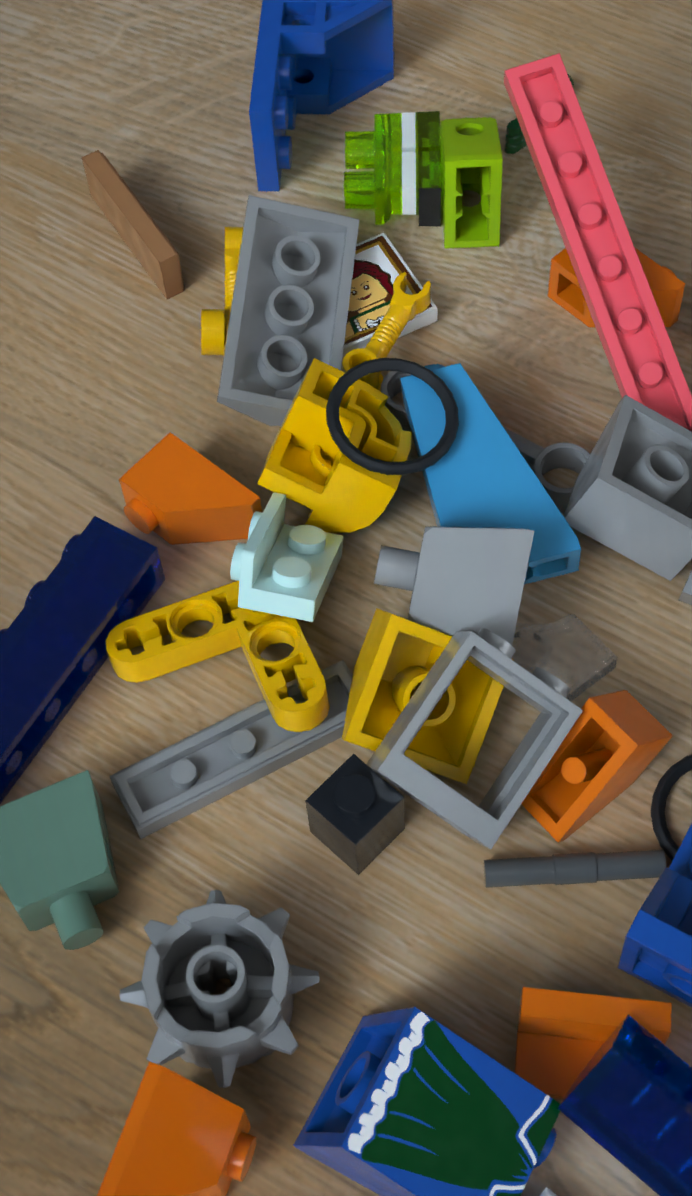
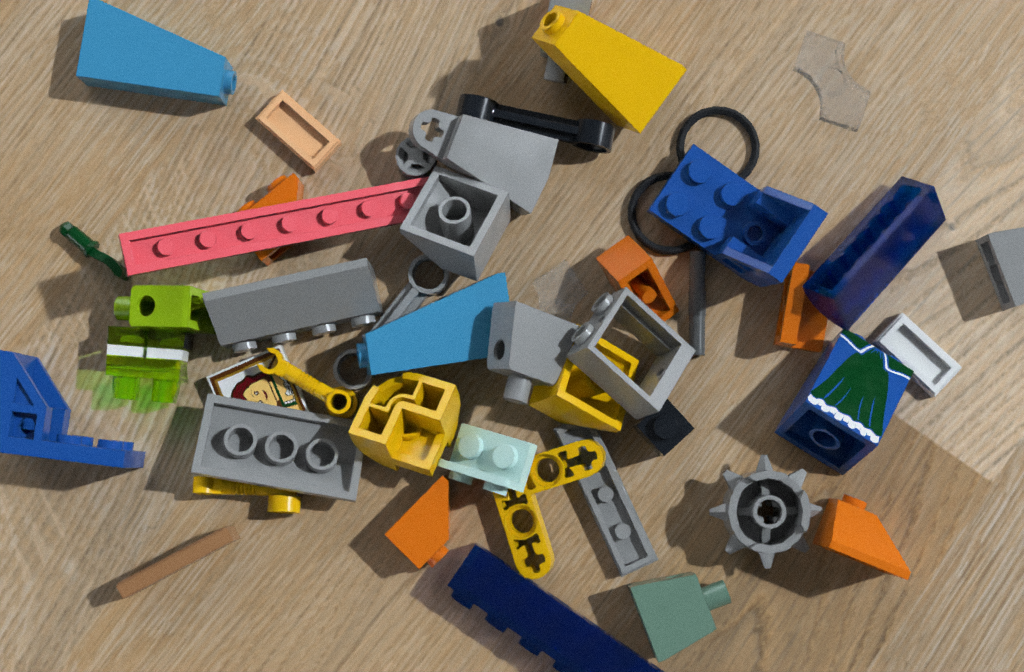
camera: 90 degrees left, 25 degrees up
(381, 466) = (407, 422): black tyre -> none
(498, 306) = (294, 305): none -> light grey slope

